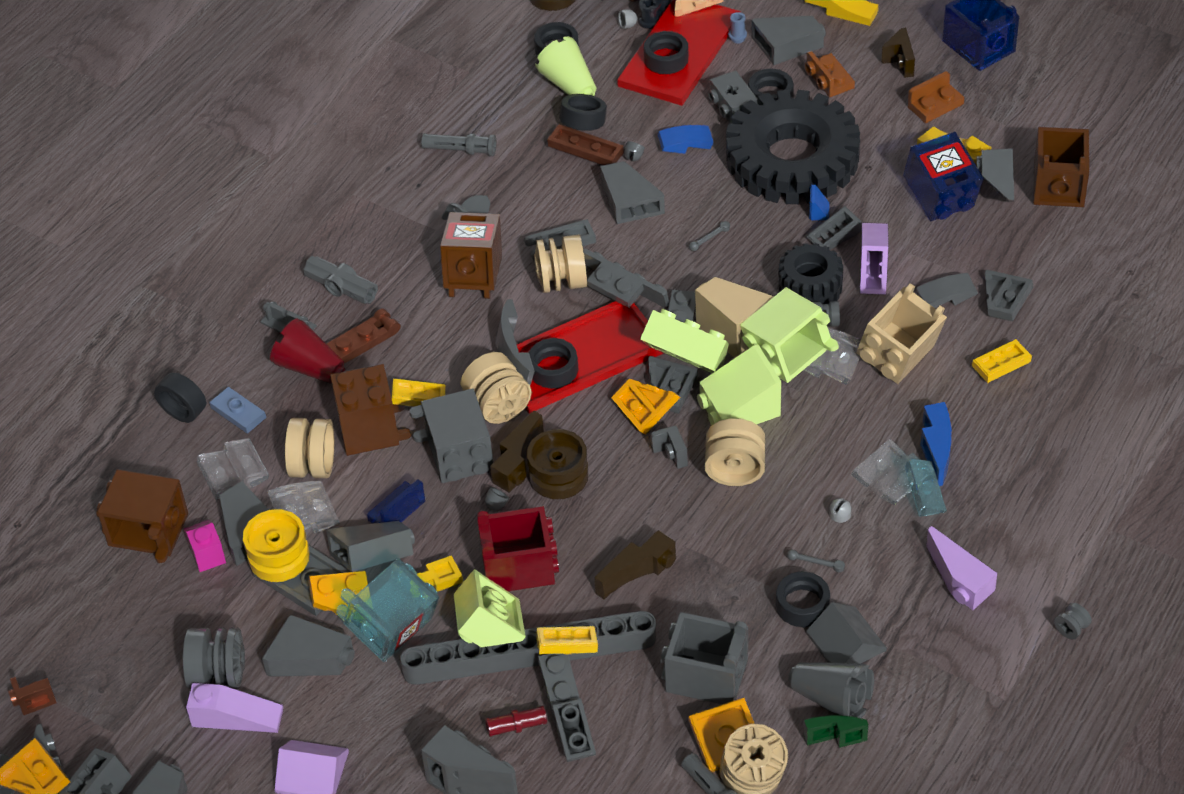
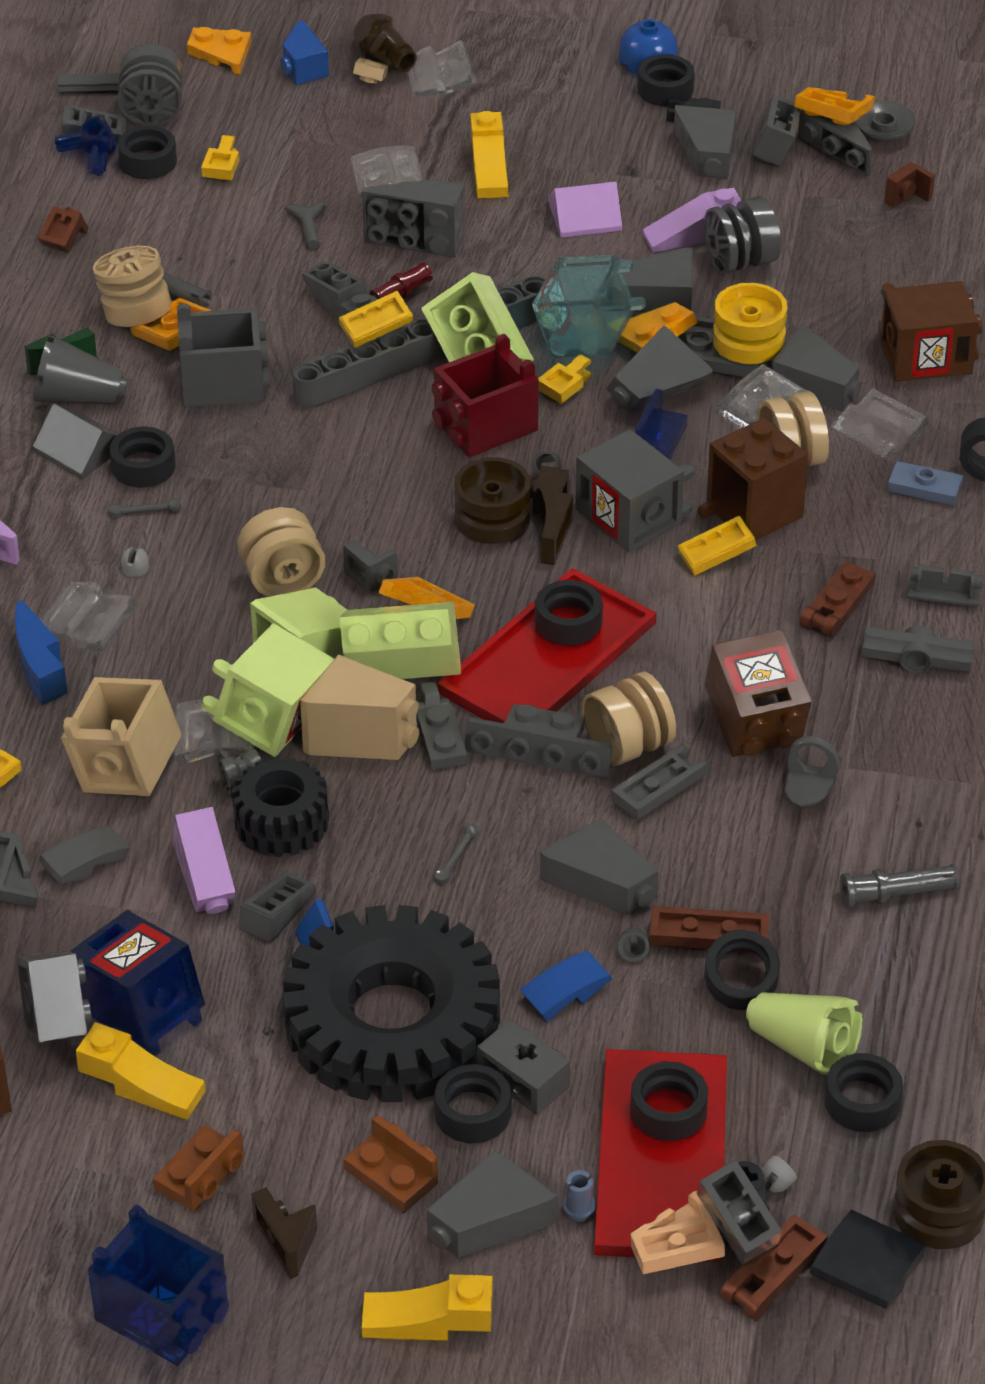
camera: 155 degrees right, 5 degrees down
(205, 545) = (850, 337): dark pink slope -> none
(305, 353) = (881, 538): dark red cone -> none
(498, 387) = (616, 549): tan wheel -> none
(506, 342) = (614, 586): dark grey slope -> none
(635, 562) = (346, 442): dark brown slope -> none
(925, 487) = (39, 594): clear light blue slope -> none

